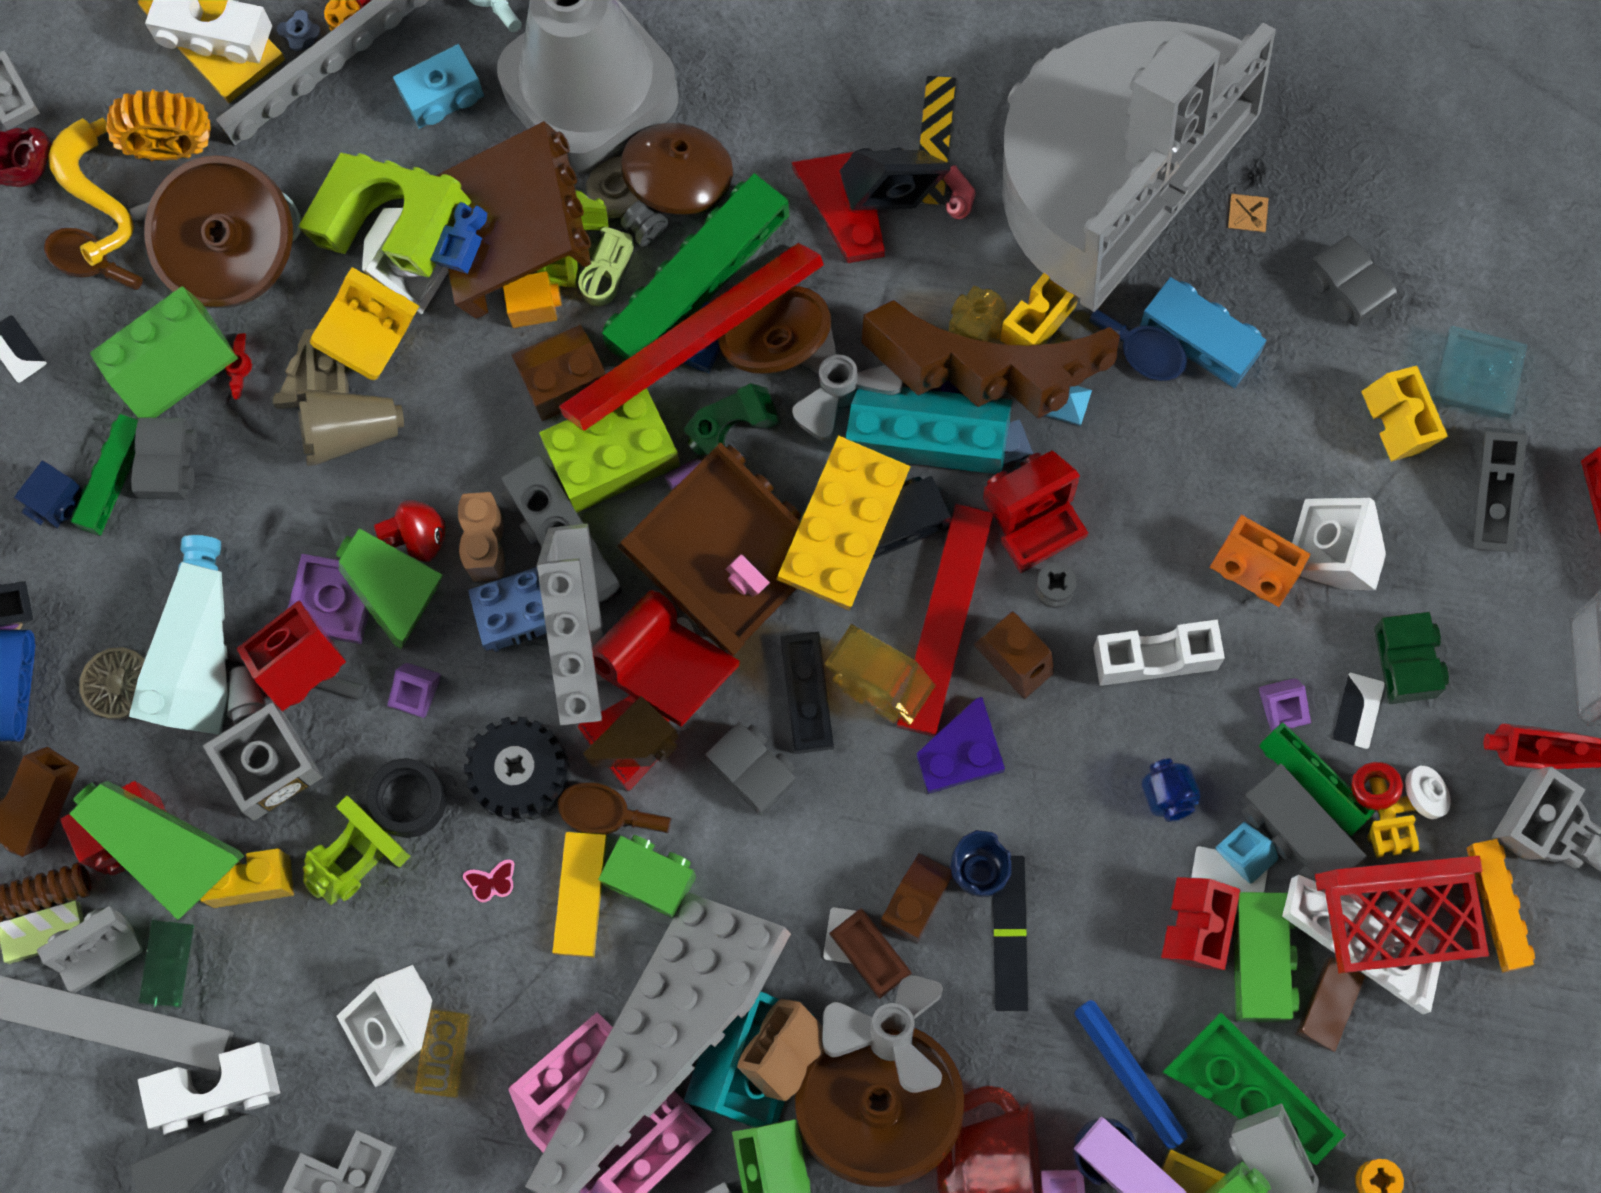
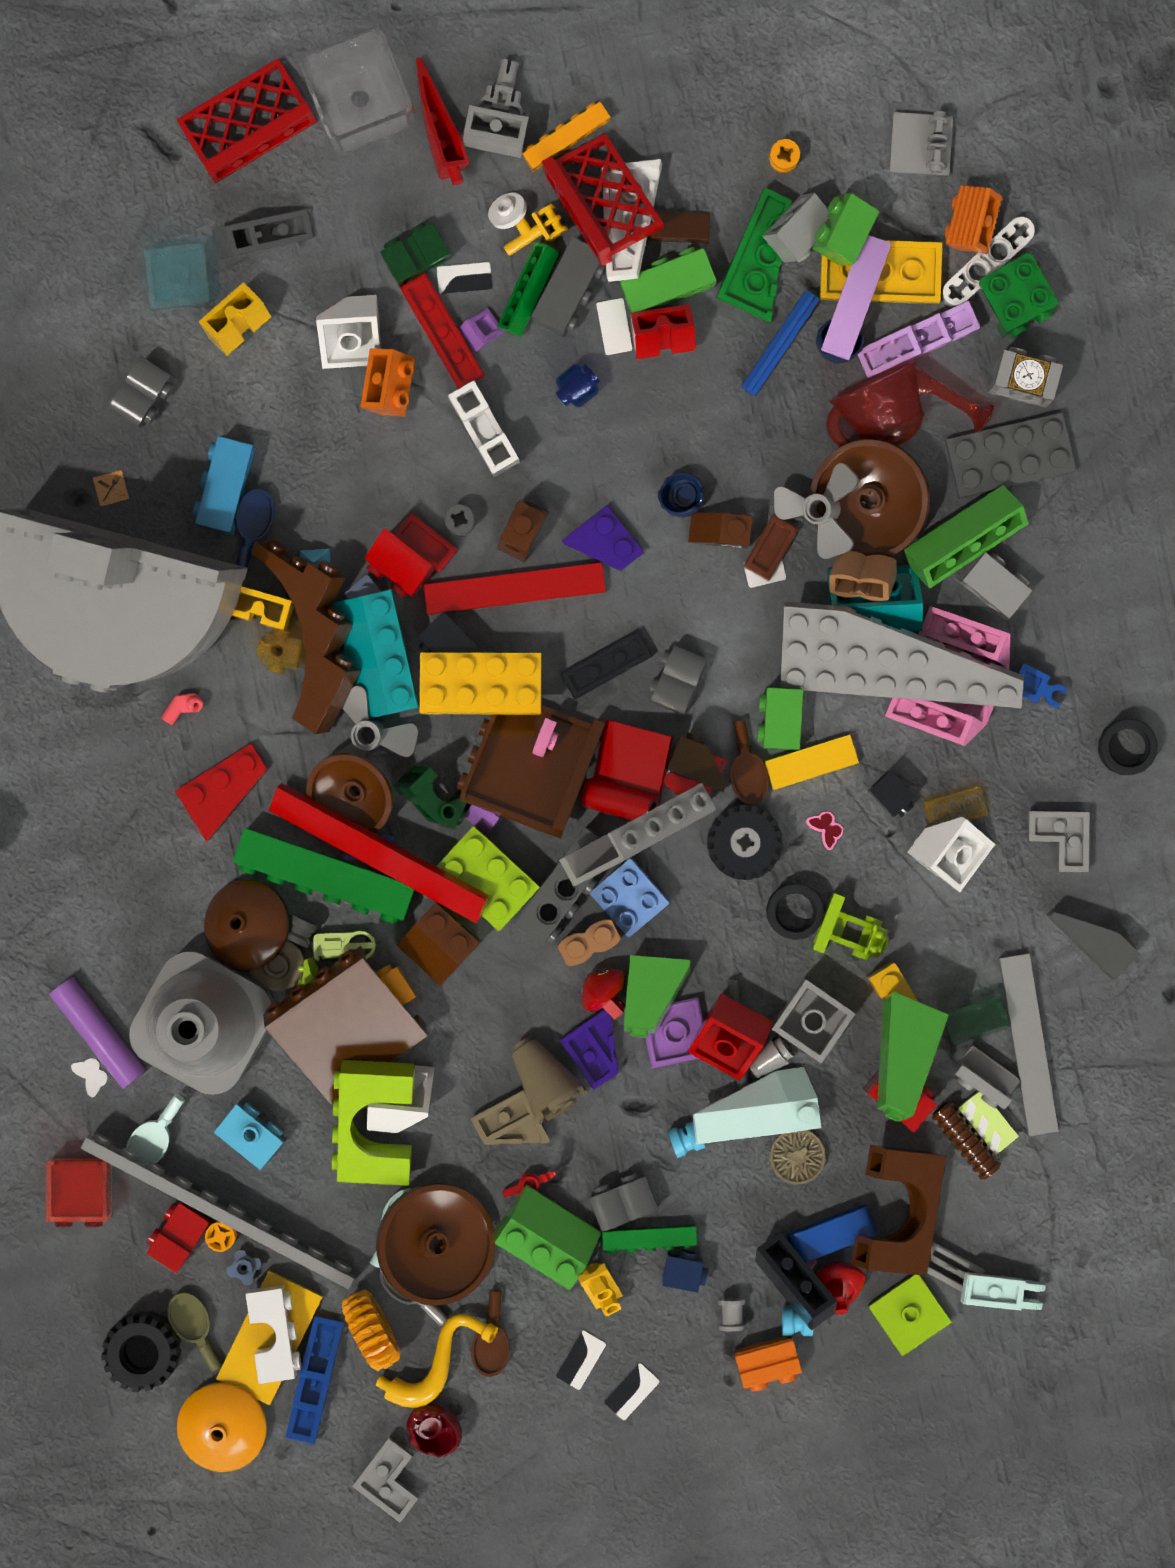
camera: 115 degrees left, 15 degrees up
(77, 393) = (601, 1288): none -> yellow hips
(136, 54) = (314, 1380): none -> blue slope
(245, 1080) = (1061, 972): white arch -> none
(353, 494) = (593, 1049): none -> dark purple wing
(364, 324) = (467, 1099): yellow bracket -> none
(413, 689) = (715, 943): medium lavender slope -> none
(460, 243) = (384, 1050): blue plate -> none
(493, 977) = (892, 795): none -> black brick
(879, 675) = (580, 614): clear yellow brick -> none
(890, 178) = (195, 759): black slope -> none
(937, 126) = (141, 743): sticker -> none
(1011, 941) = (723, 456): black sticker -> none
(1248, 852) = (597, 318): medium azure slope -> none
(1300, 656) = (442, 331): none -> red tile
(1380, 801) = (506, 250): red piece -> none

